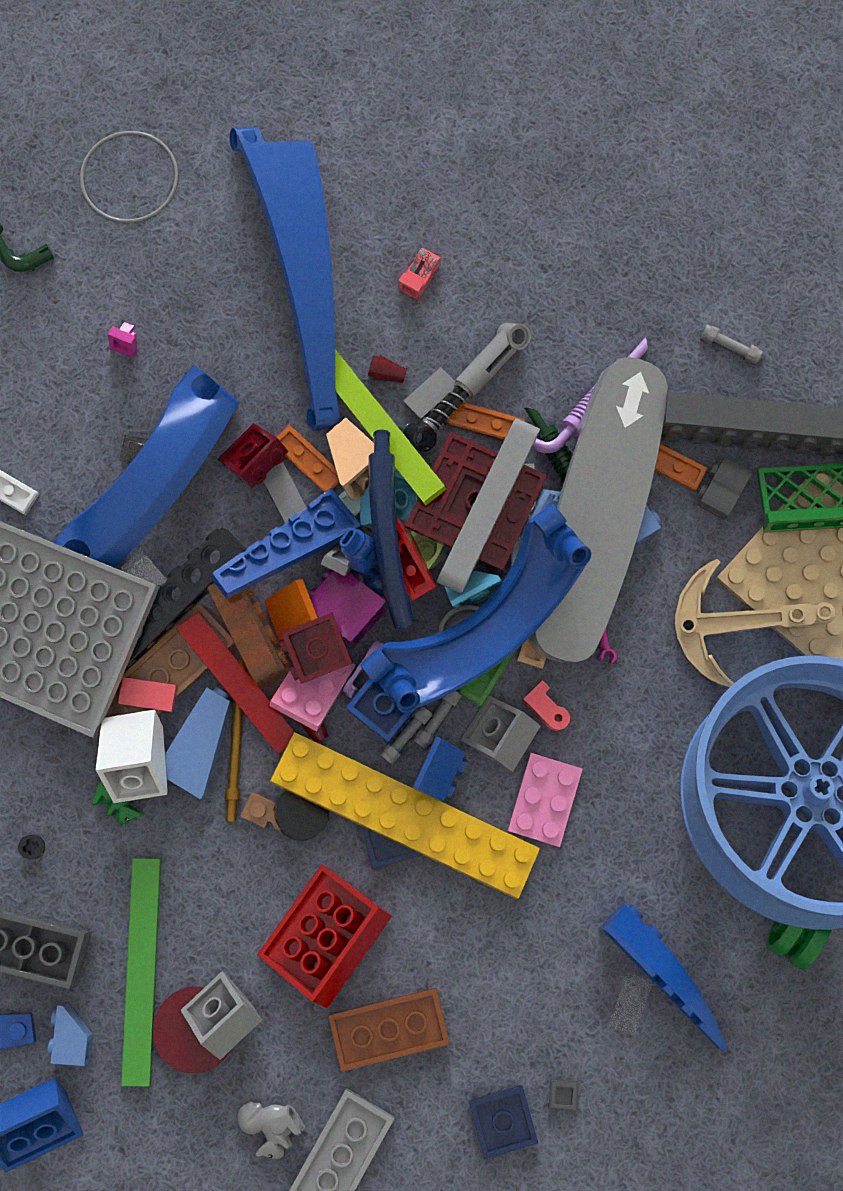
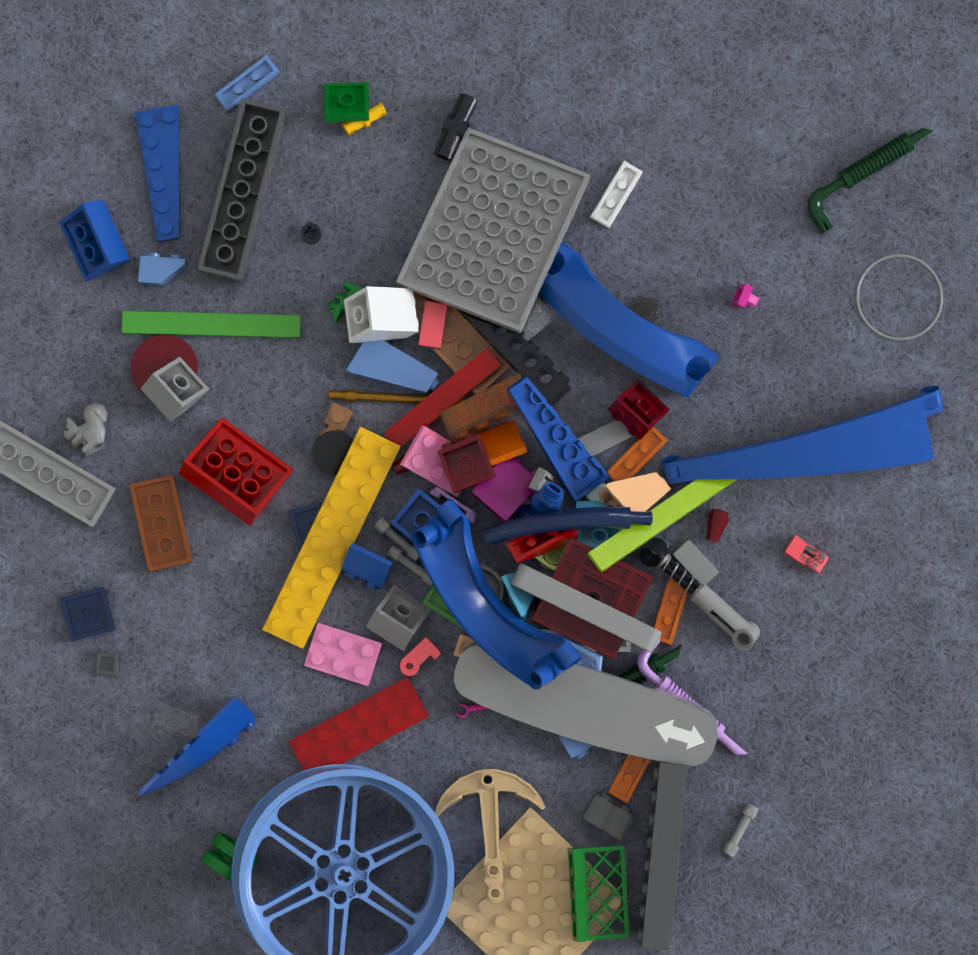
camera: 90 degrees right, 5 degrees up
(632, 779) = (360, 726): none -> red plate

